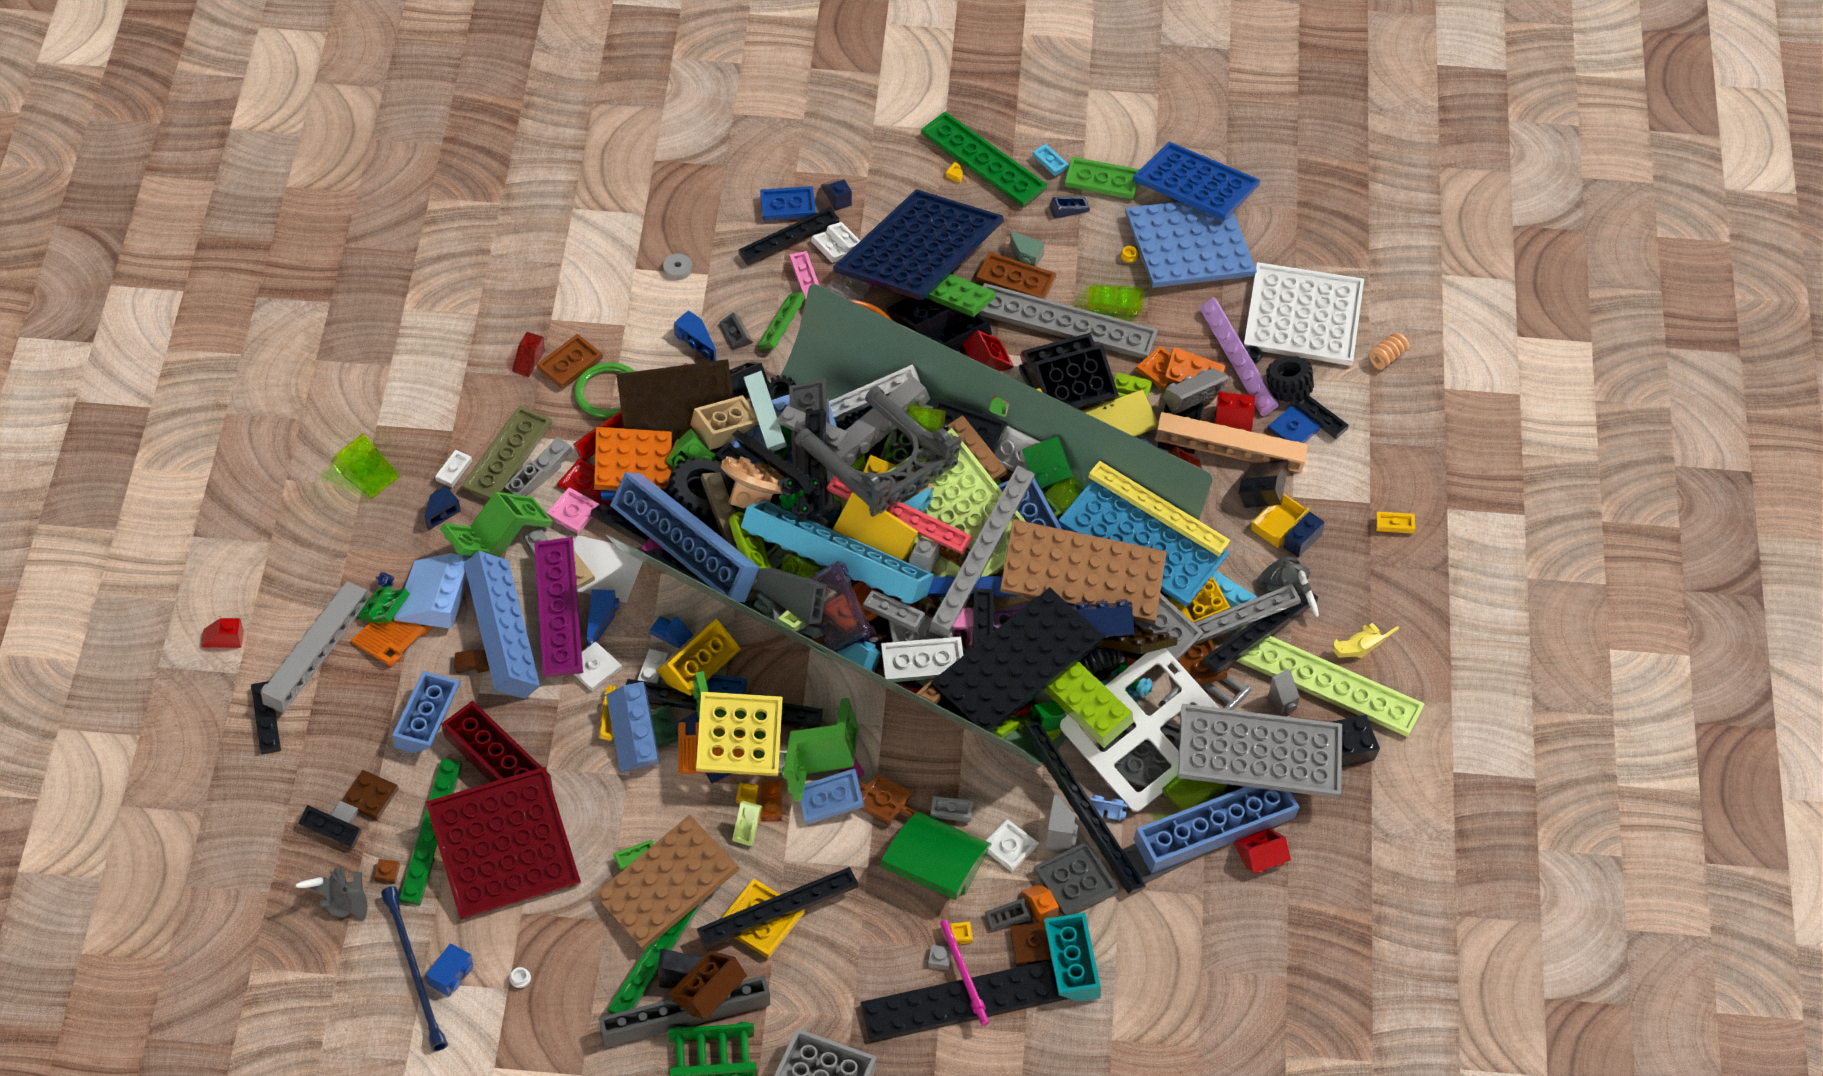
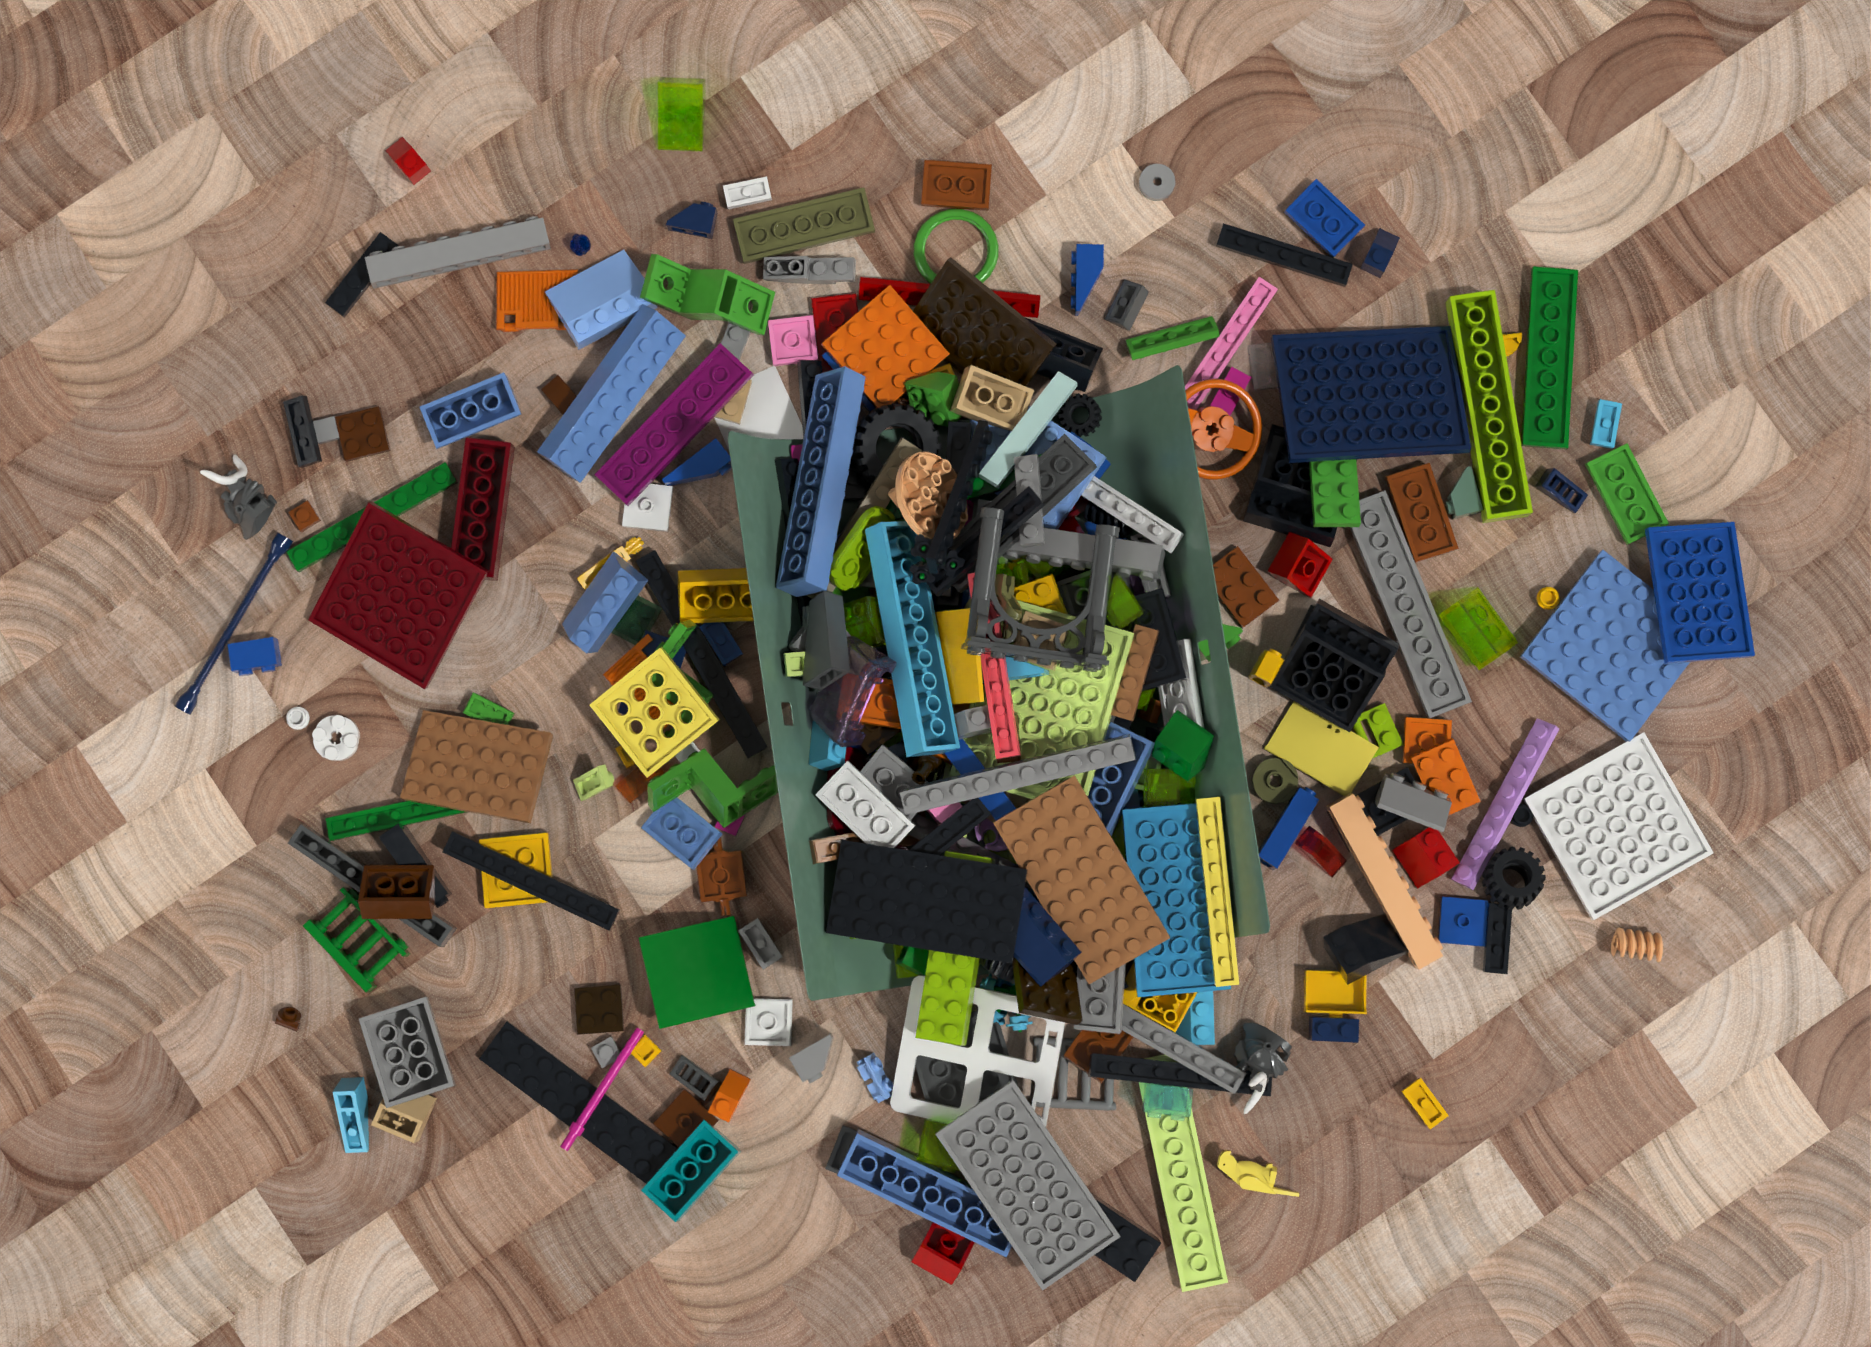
camera: 55 degrees right, 30 degrees up
(383, 605) = (551, 268): green slope -> none
(528, 354) = (929, 141): clear red slope -> none
(556, 953) = (323, 734): none -> white plate
(652, 662) = (688, 558): white plate -> none
(672, 631) = (735, 543): blue slope -> none
(835, 241) = (1318, 305): white slope -> none
(893, 610) = (891, 742): light grey plate -> none
(905, 940) = (599, 1009): none -> dark brown plate
(1020, 214) = (1489, 406): none -> lime brick
(1076, 879) = (778, 1109): dark grey plate -> none
(1083, 807) = (850, 1062): black plate -> none
(1271, 647) = (1168, 1101): none -> clear light blue brick
(1283, 693) = (1127, 1149): light grey slope -> none

